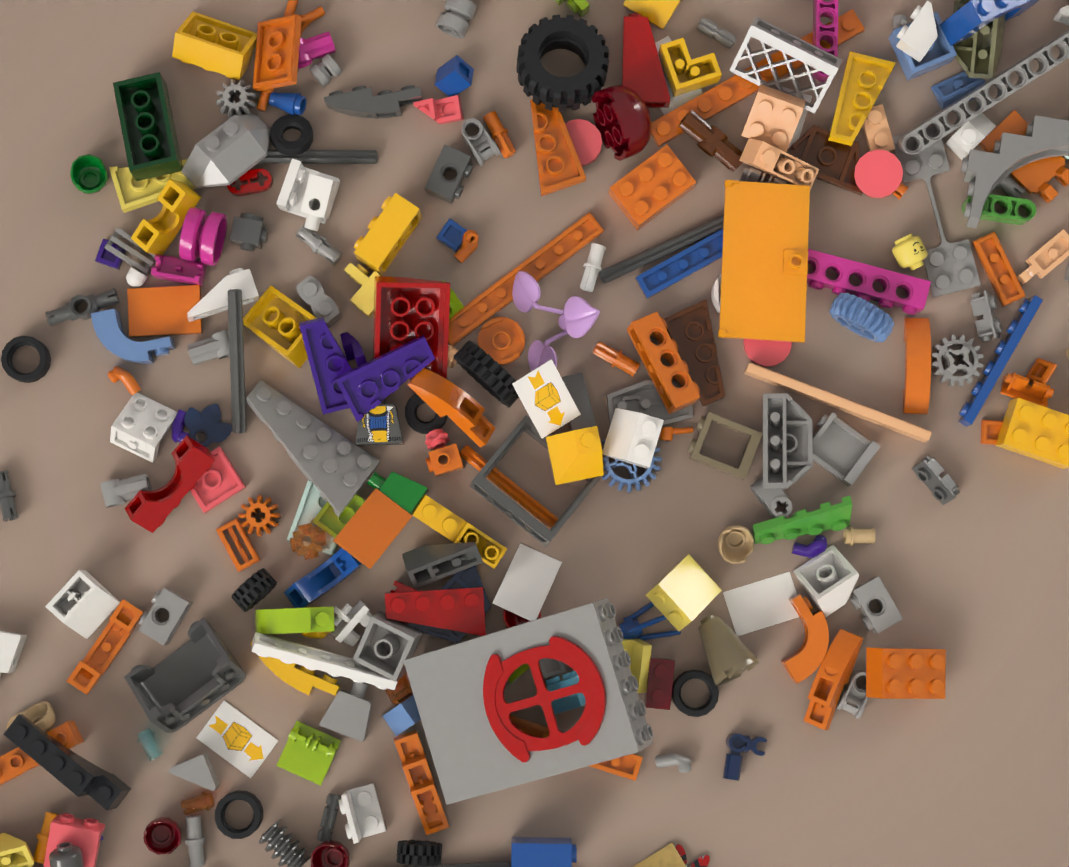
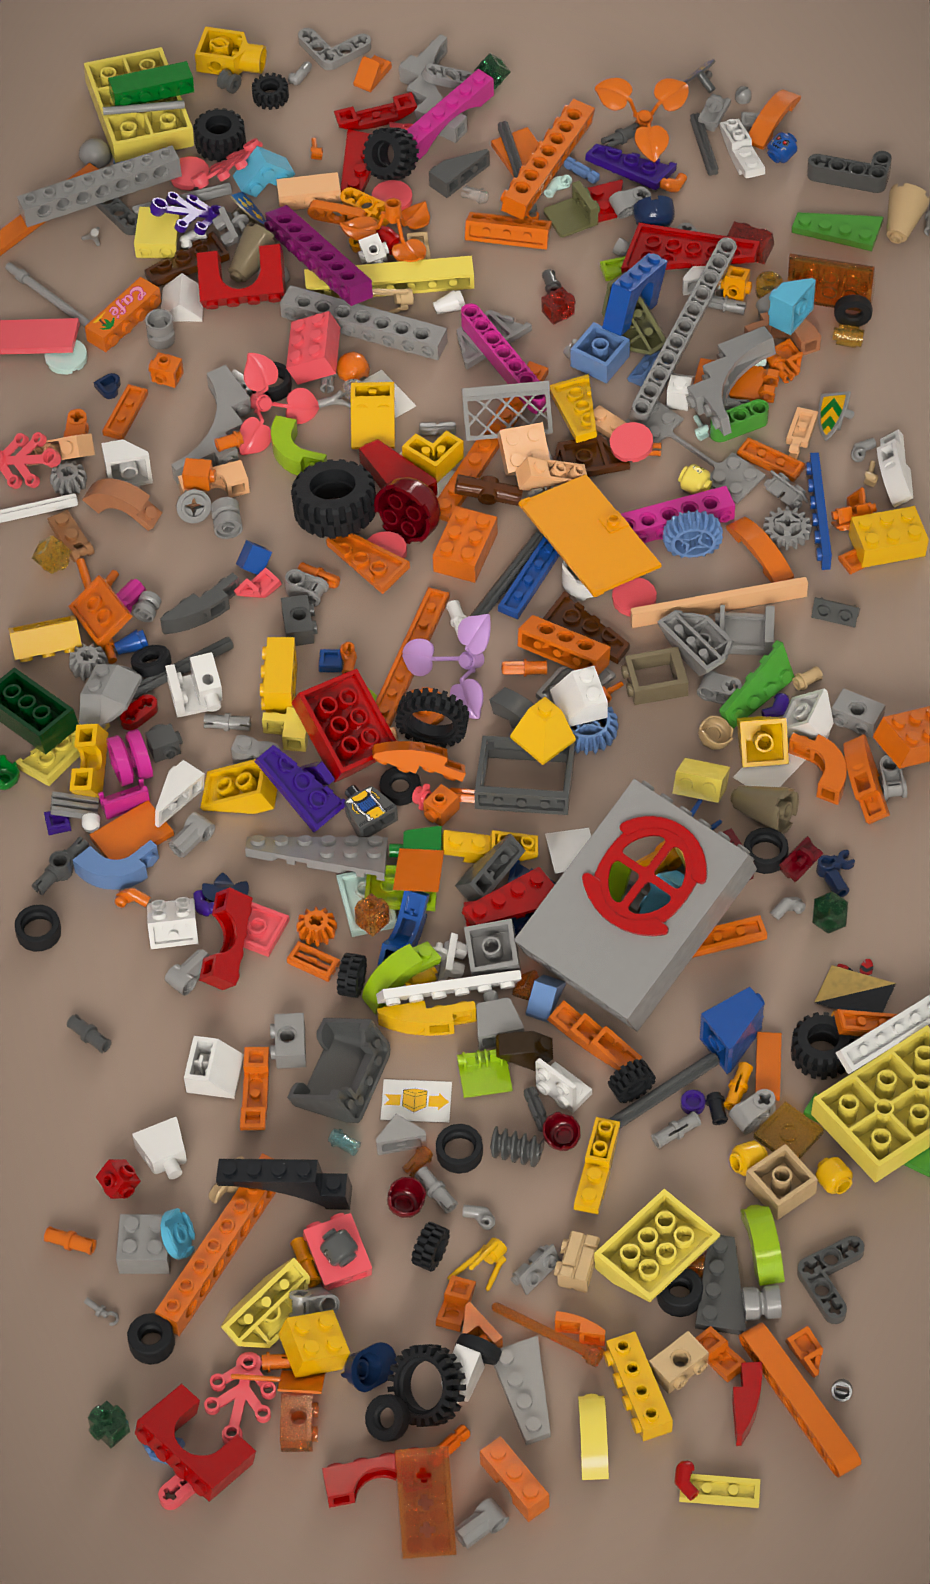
camera: 30 degrees left, 30 degrees down
(237, 364) = (219, 827): dark grey axle -> none
(349, 762) = (524, 1048): none -> dark brown slope
(375, 380) = (345, 768): dark purple wing -> none
(546, 399) = (491, 705): white sticker -> none
(704, 796) = (830, 912): none -> clear green brick
(716, 726) = (800, 859): none -> dark red hips
(770, 578) = (762, 741): none -> yellow slope
(920, 34) = (592, 338): white slope -> none
(958, 196) = (701, 432): none -> light aqua hand

